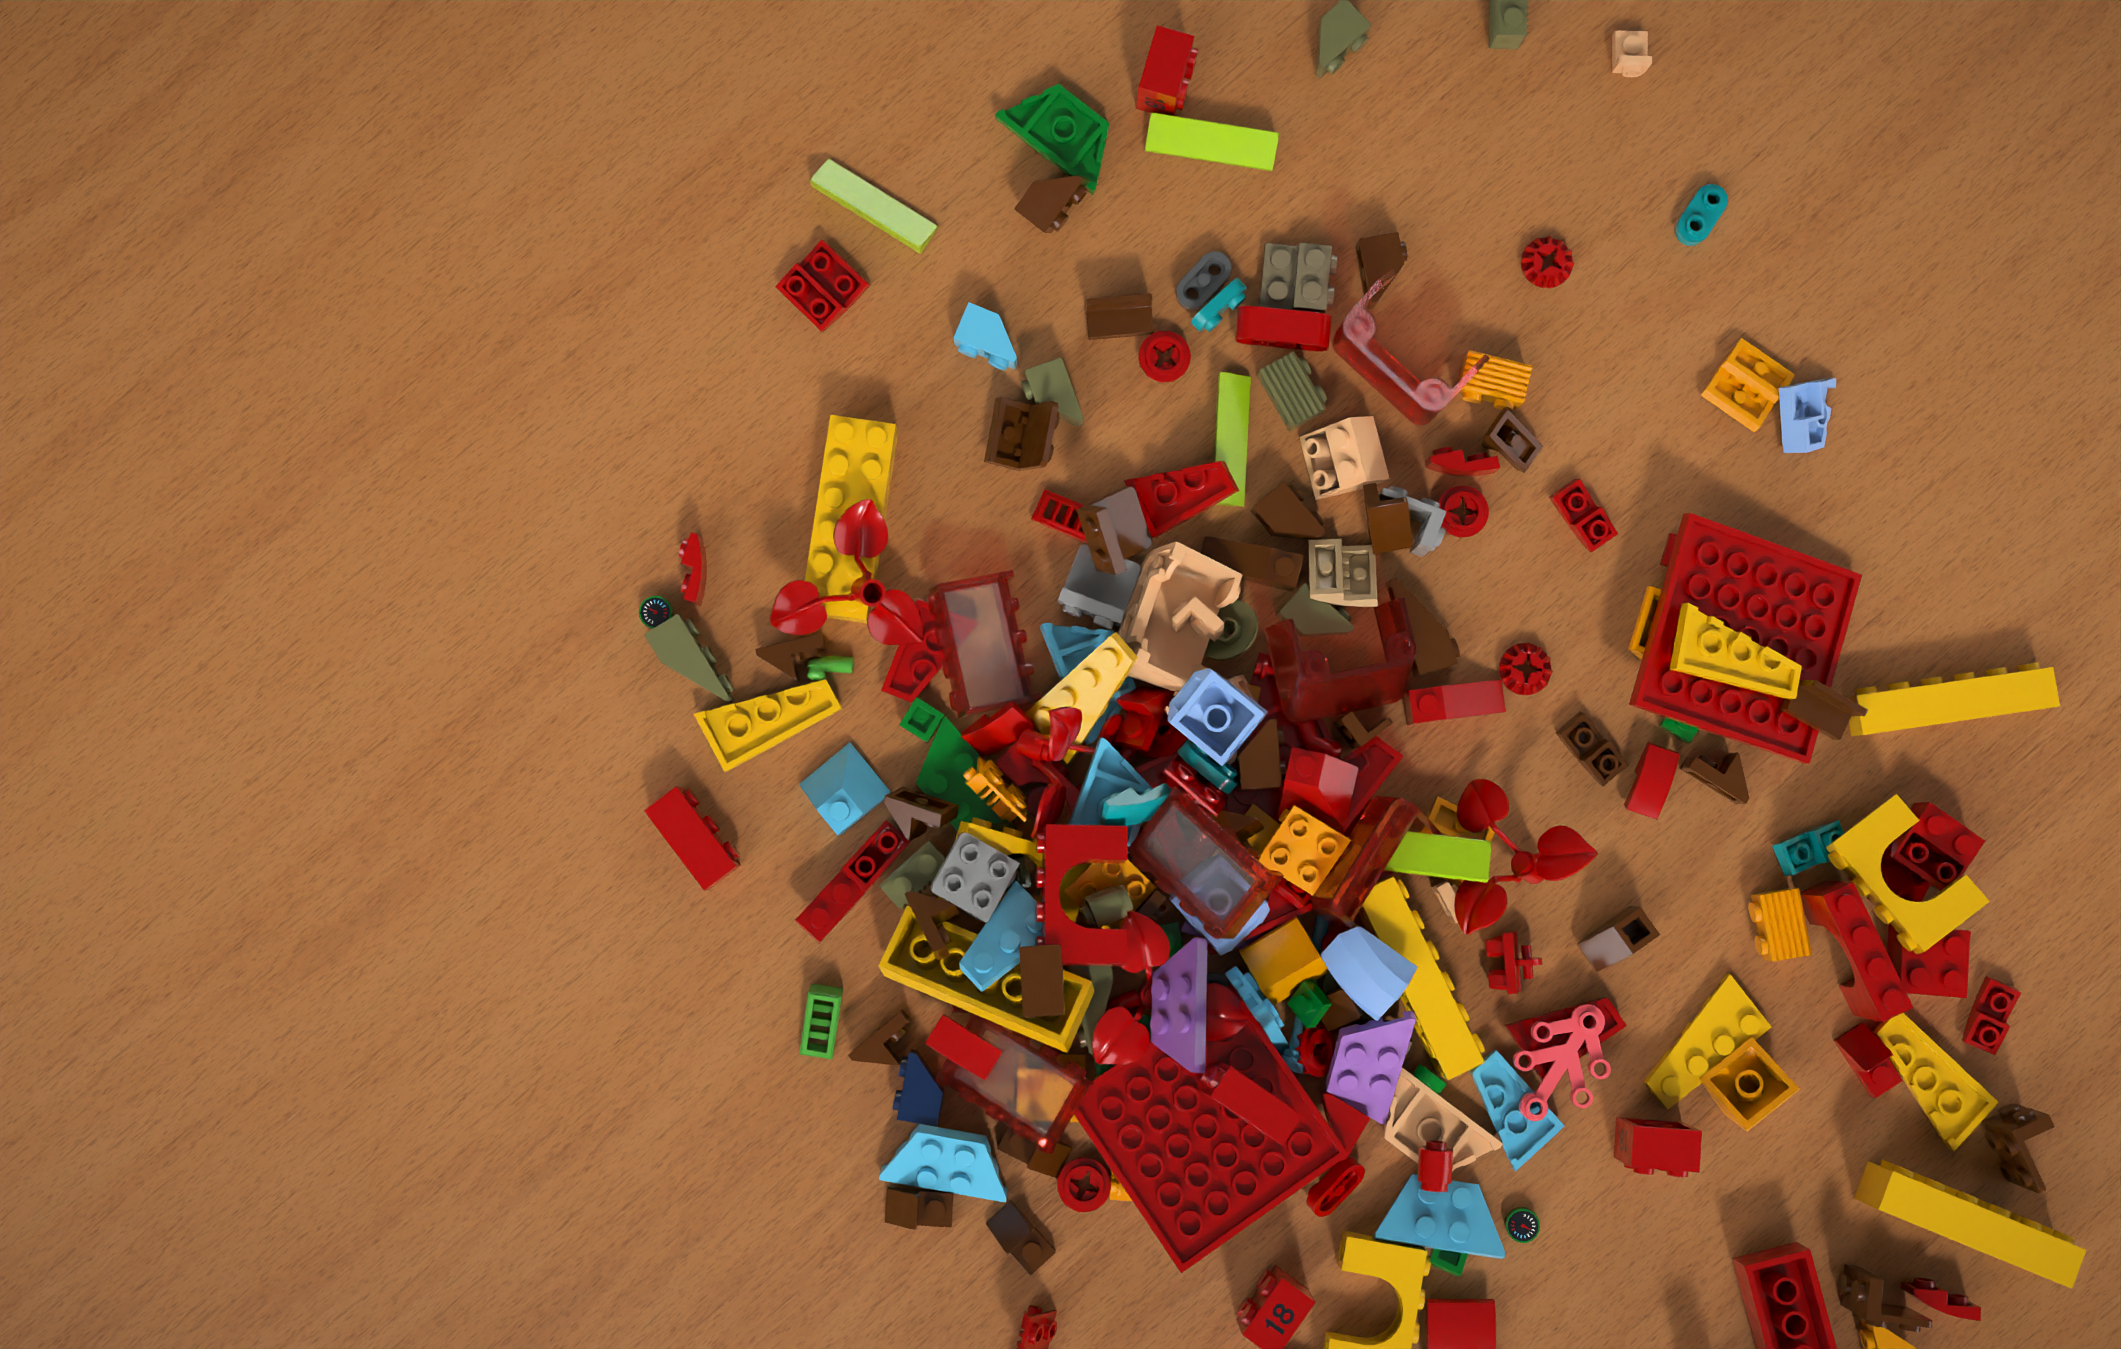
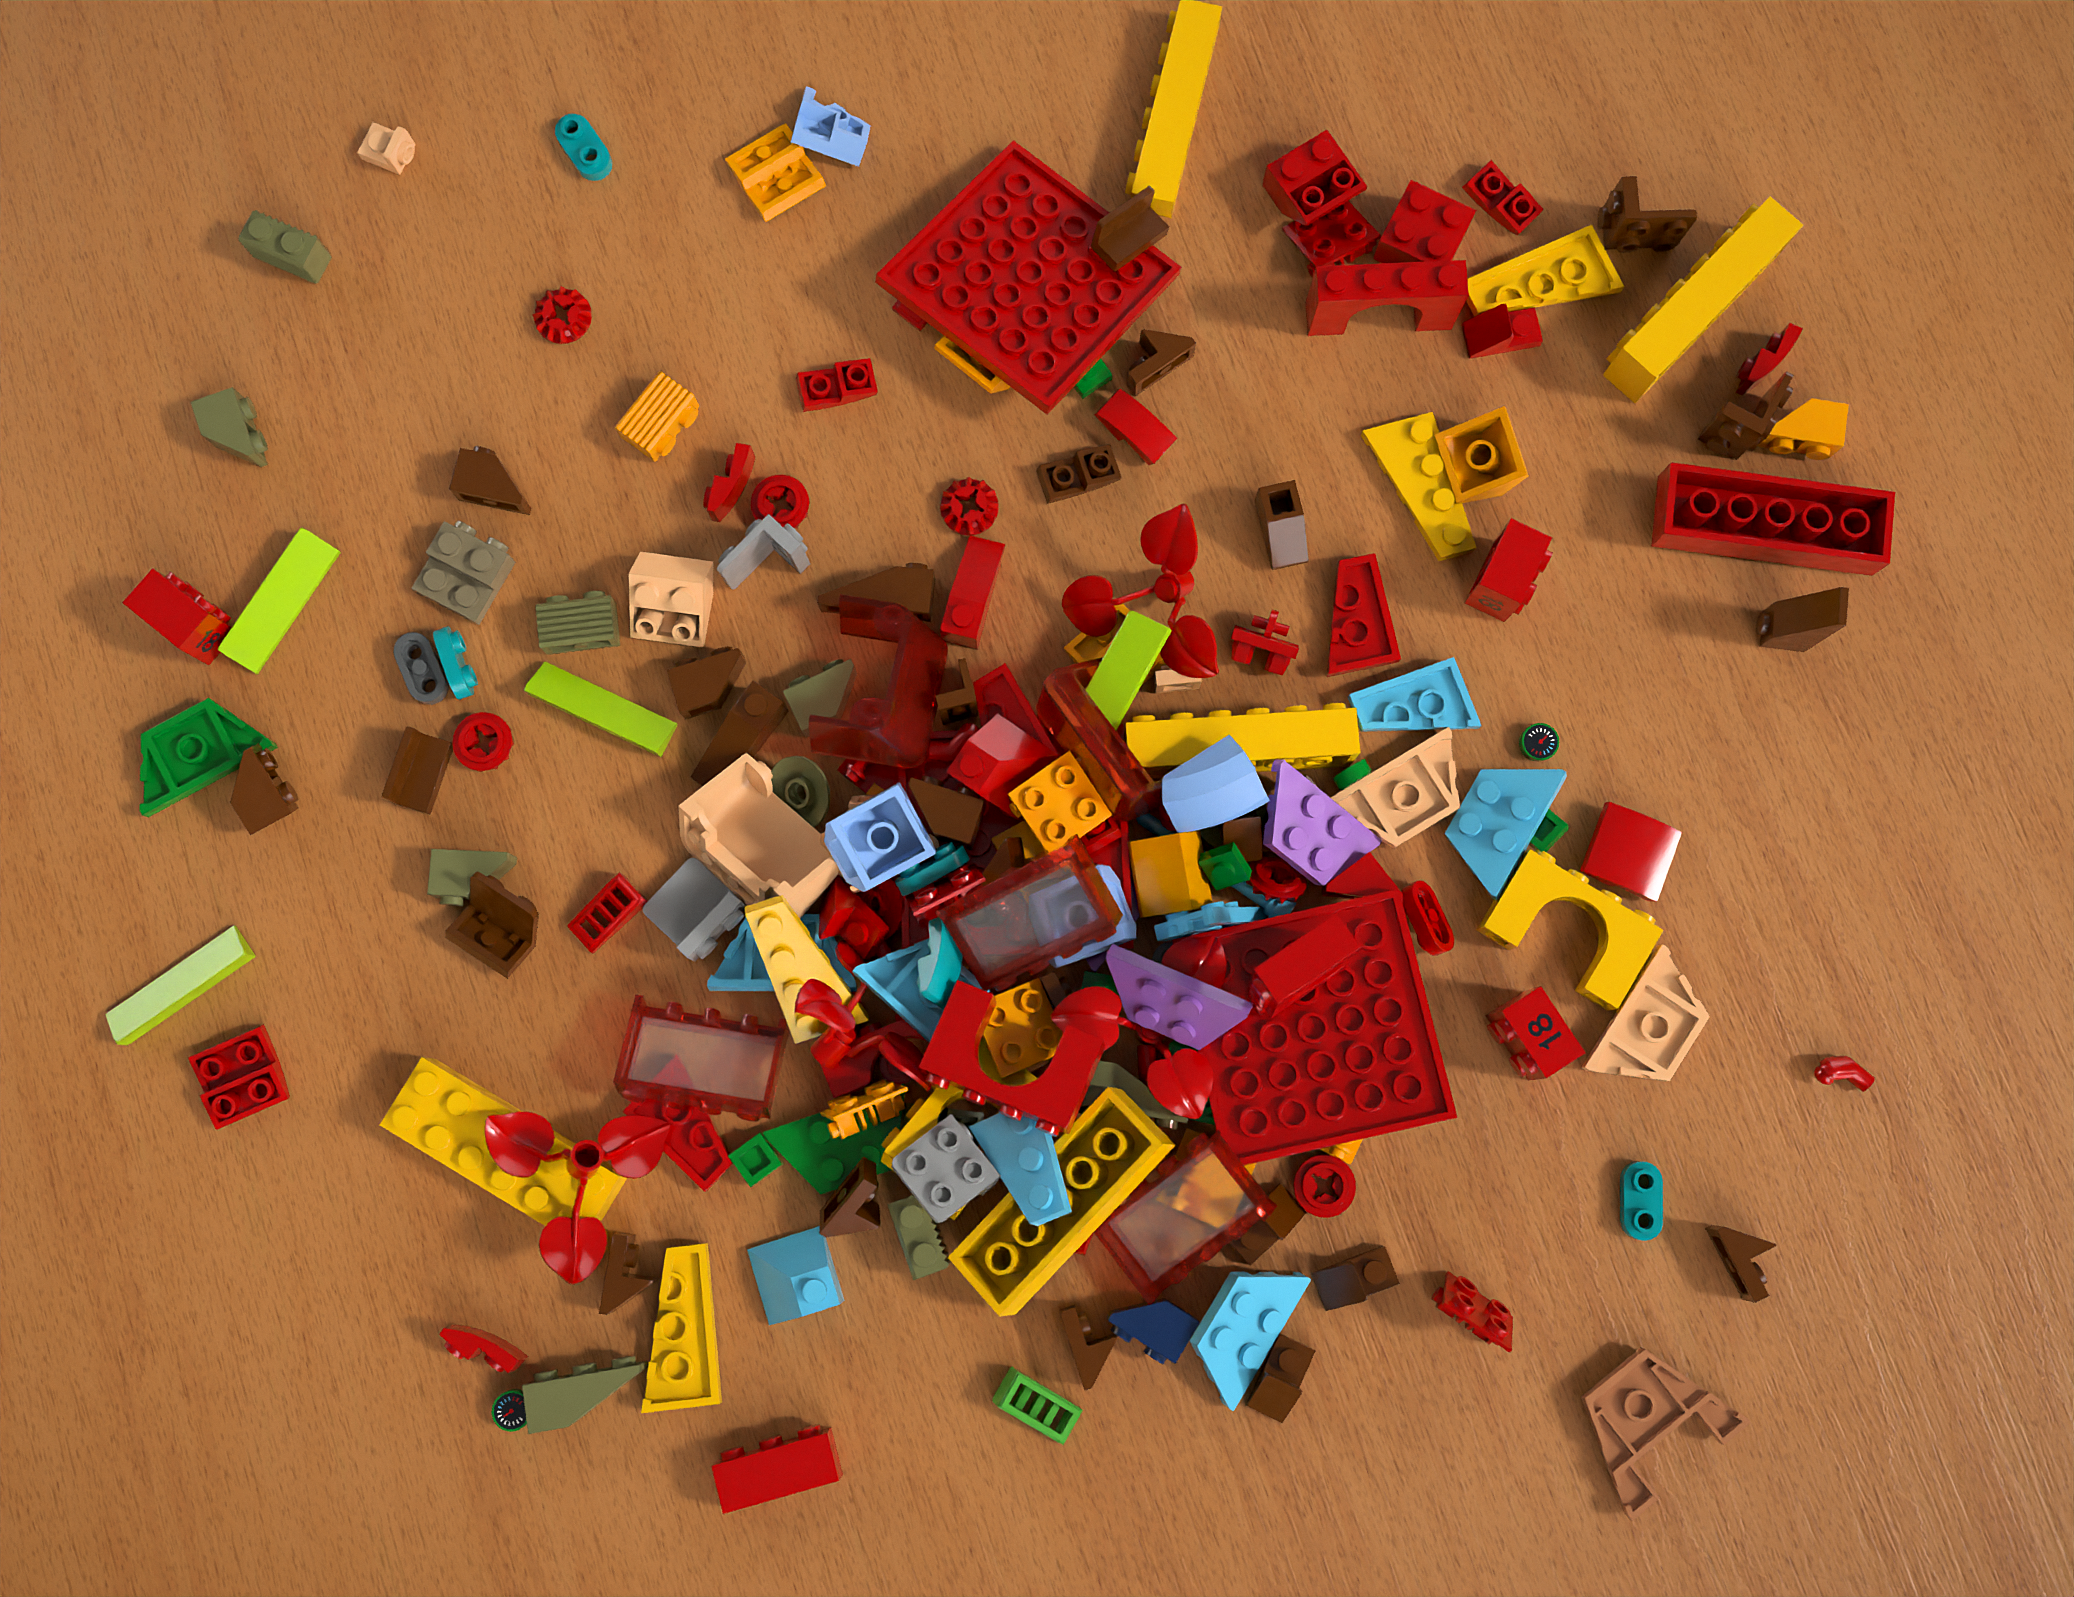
camera: 65 degrees left, 5 degrees down
(830, 663) = (654, 1232): bright green arm -> none
(852, 881) = (899, 1308): red slope -> none
(929, 914) = (967, 1235): reddish brown slope -> none
(964, 1047) = (1125, 1256): red slope -> none
(984, 335) = (372, 923): medium azure slope -> none
(998, 731) = (801, 1079): red slope -> none
(1042, 980) = (1084, 1139): reddish brown panel -> none
(1106, 906) = (1034, 1038): olive brick -> none
(1114, 529) = (640, 867): reddish brown bracket -> none
(1181, 494) = (634, 785): red wing -> none
(1203, 619) = (772, 813): light nougat bracket -> none
(1283, 328) = (508, 606): red beam -> none
(1342, 573) = (790, 649): tan slope -> none
(1355, 345) = (642, 503): clear red windscreen -> none
(1387, 521) = (754, 580): reddish brown panel -> none
(1435, 1166) = (1445, 804): red brick -> none
(1512, 441) = (728, 422): reddish brown slope -> none
(1564, 1057) = (1383, 627): coral plant -> none
(1723, 655) = (1040, 295): yellow wing -> none
(1780, 924) = (1332, 361): light orange brick -> none
(1806, 848) = (1267, 300): teal slope -> none
(1918, 923) = (1382, 224): yellow arch -> none

